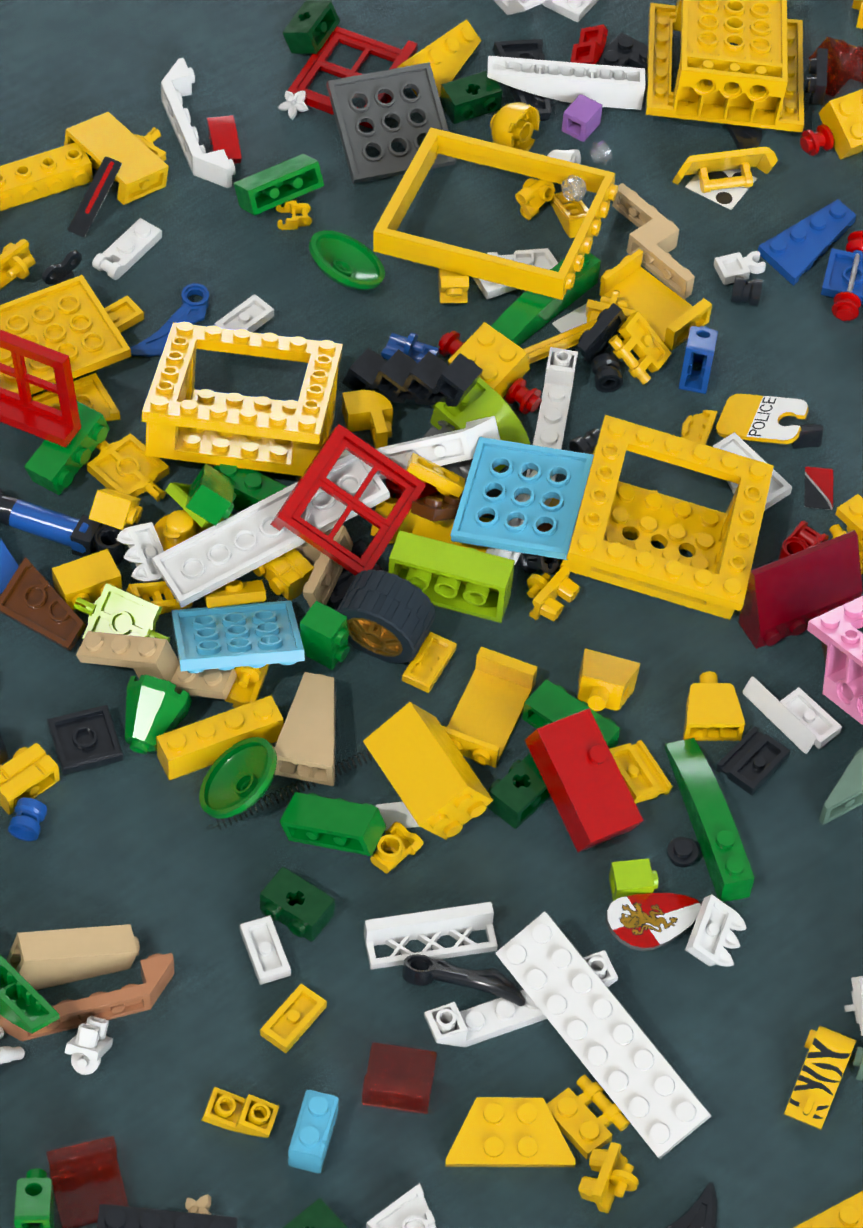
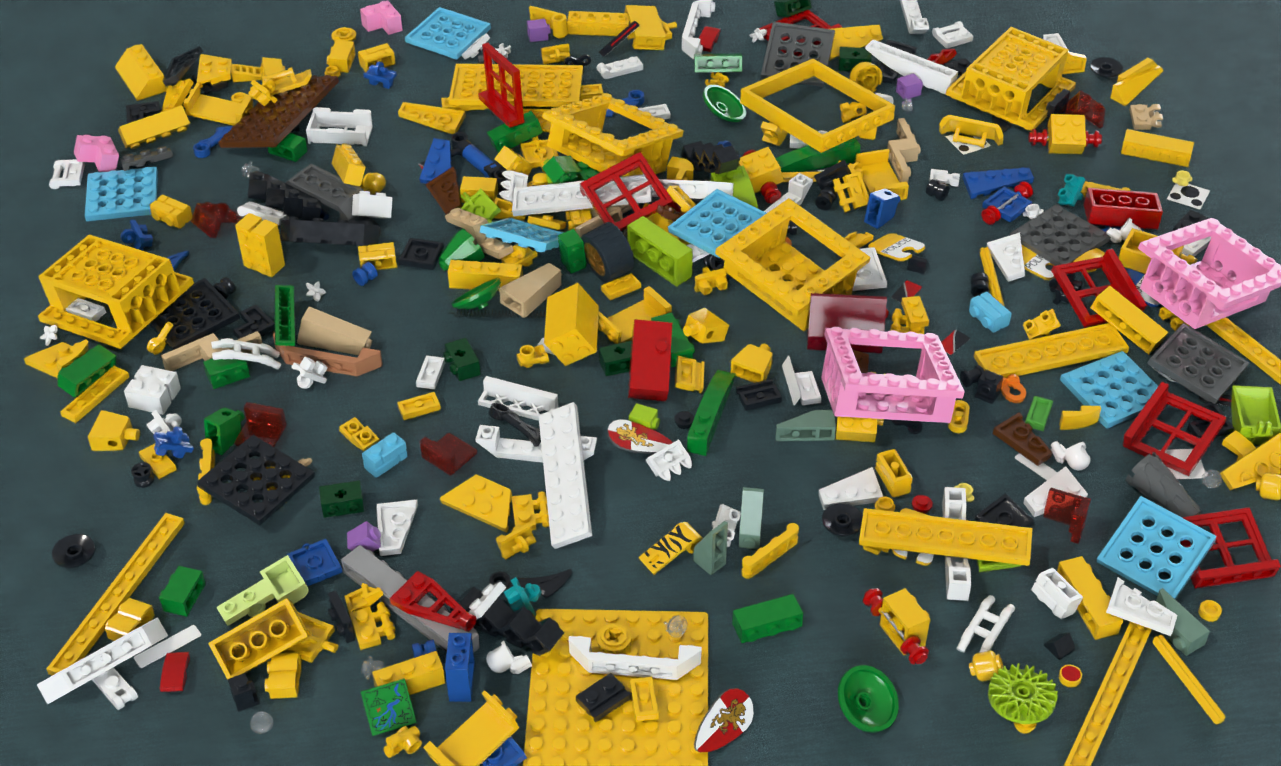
camera: 35 degrees right, 10 degrees down
(333, 823) = (507, 330): green brick -> none
(573, 188) = (864, 102): clear plate -> none

